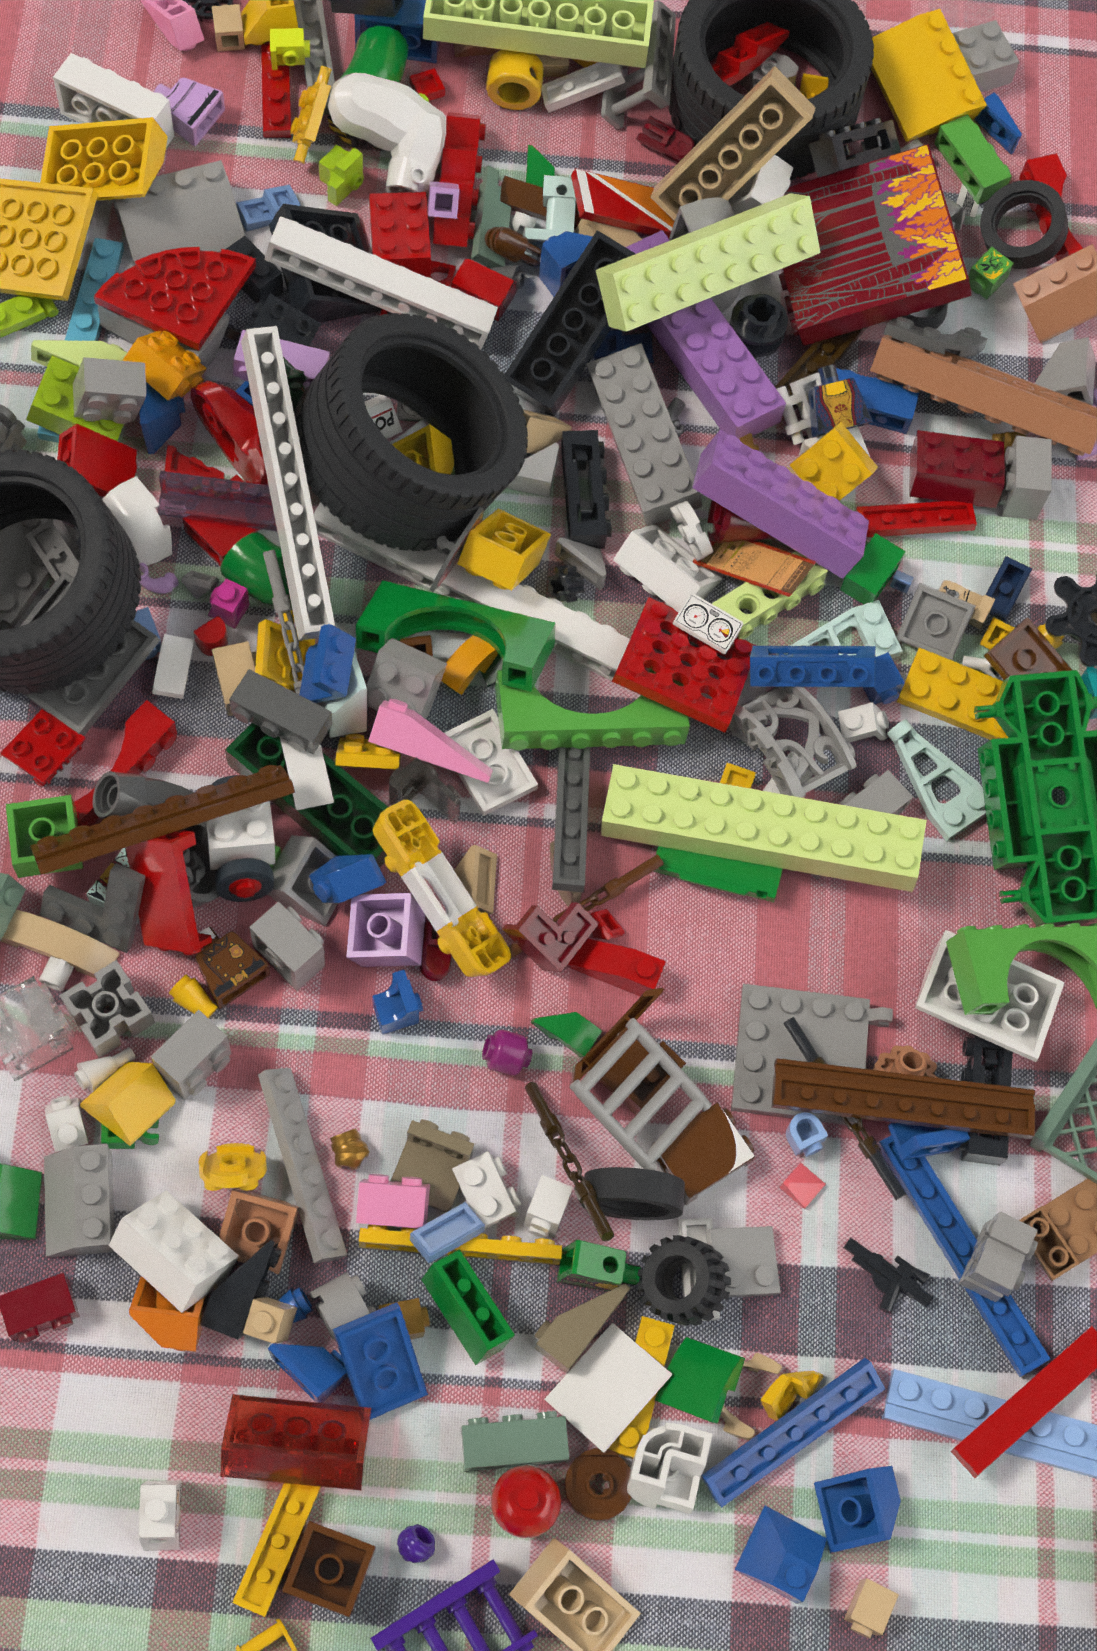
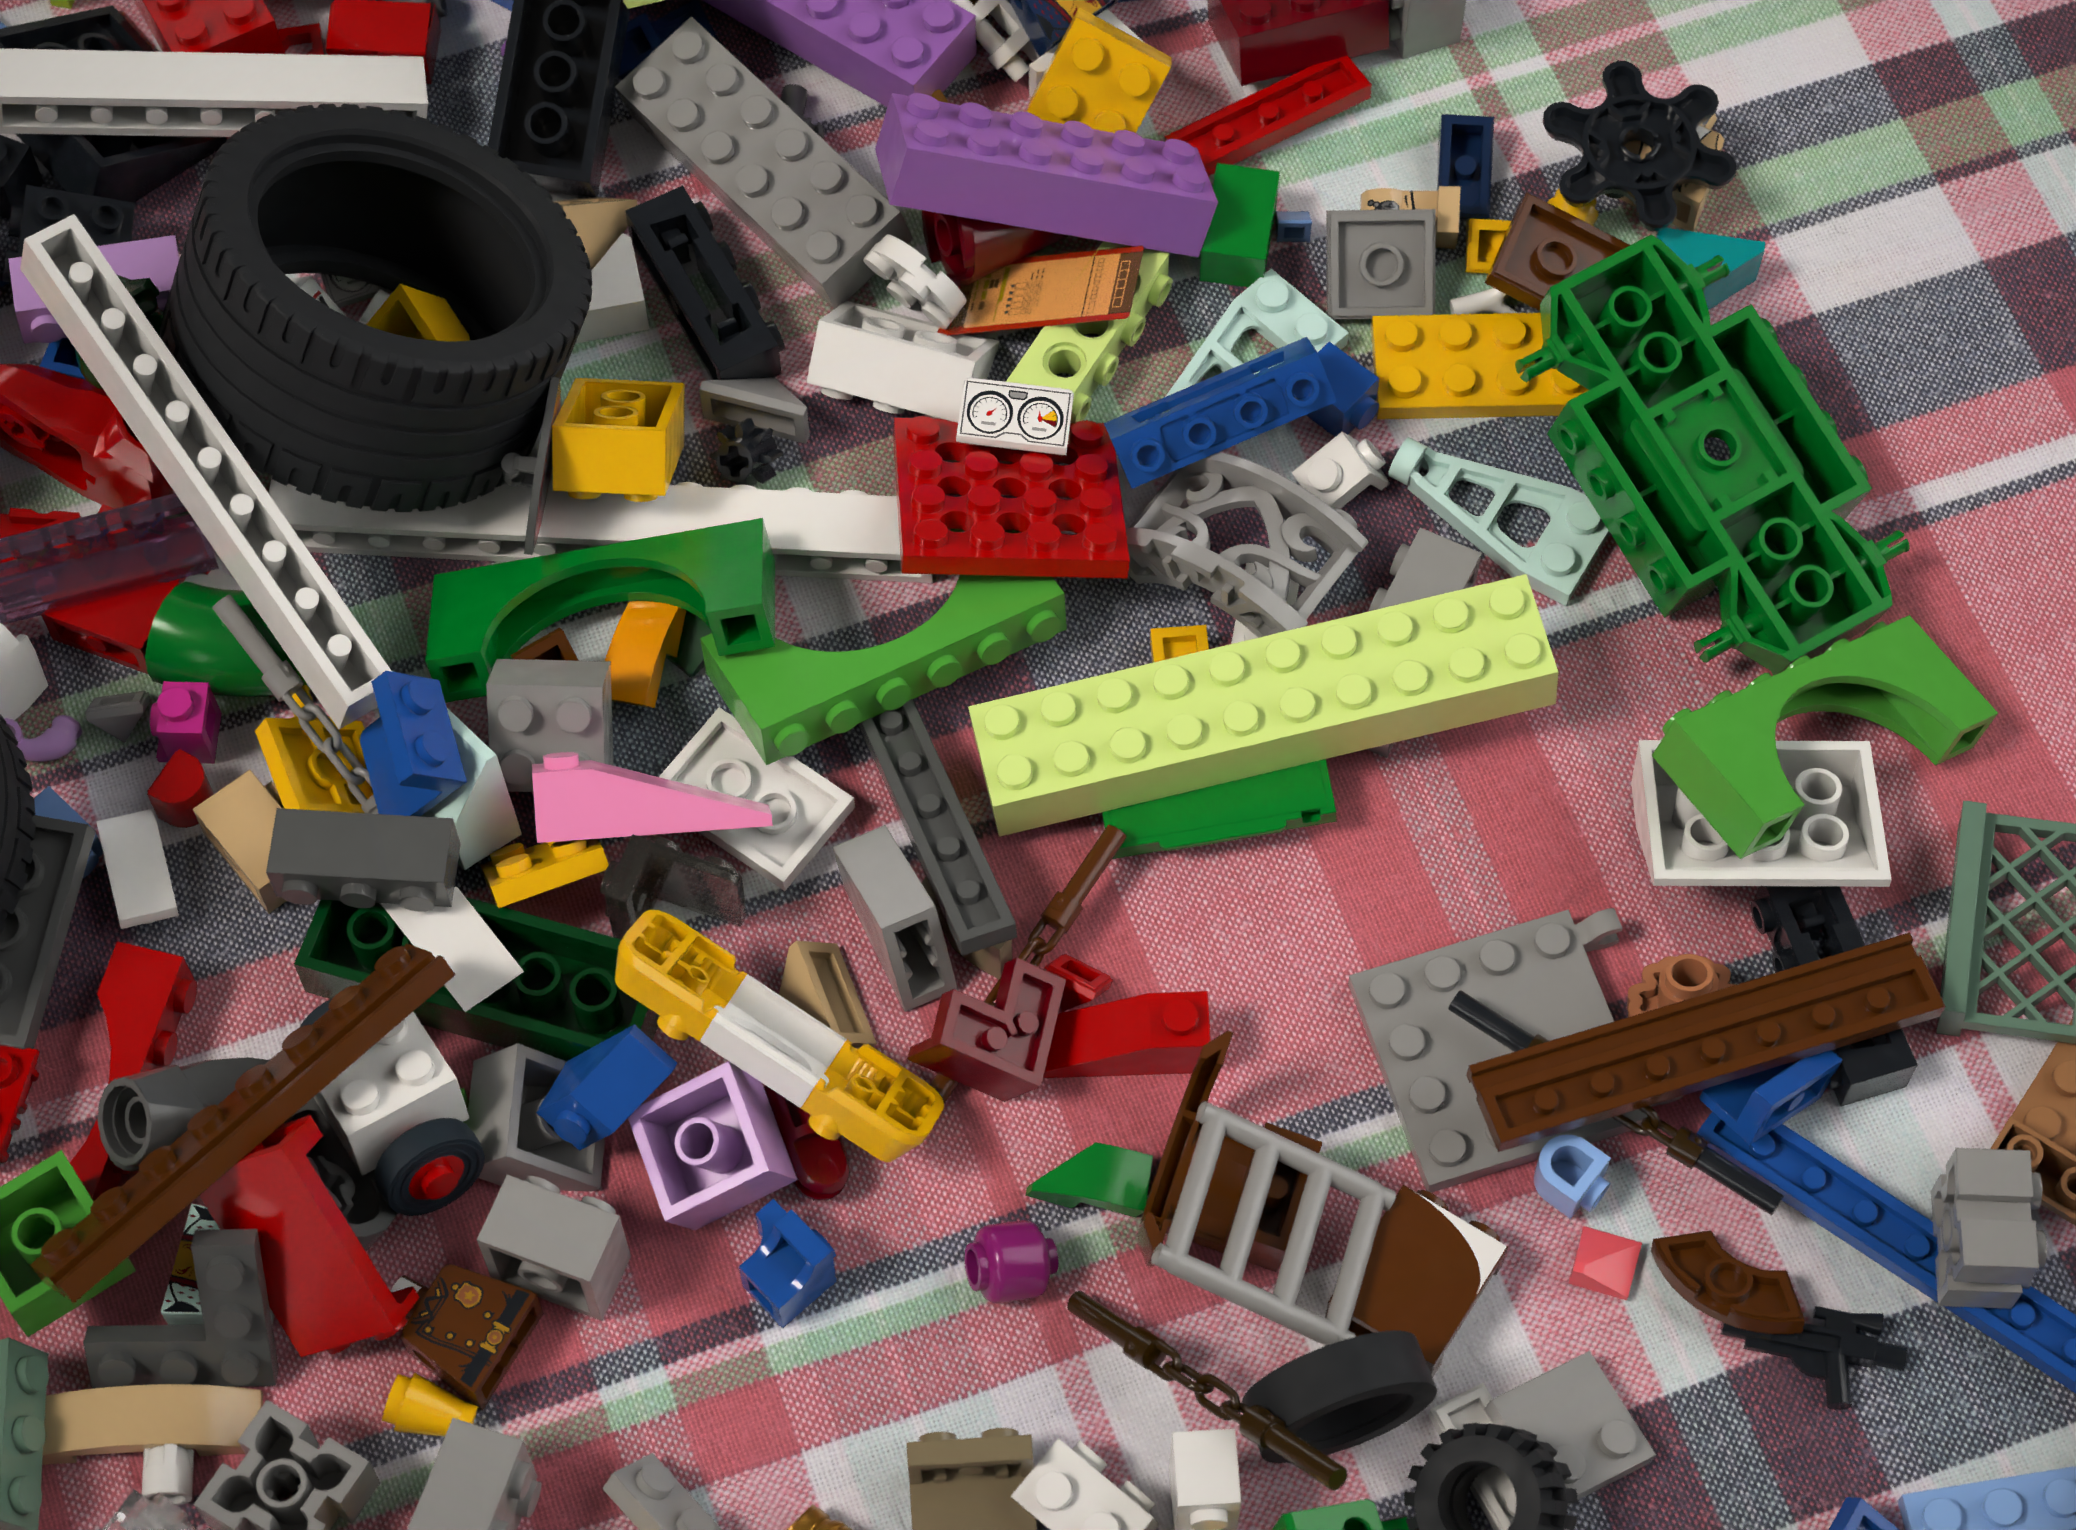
camera: 15 degrees left, 5 degrees down
(530, 854) = (896, 917): none -> light grey slope
(857, 1226) = (1727, 1287): none -> reddish brown tile

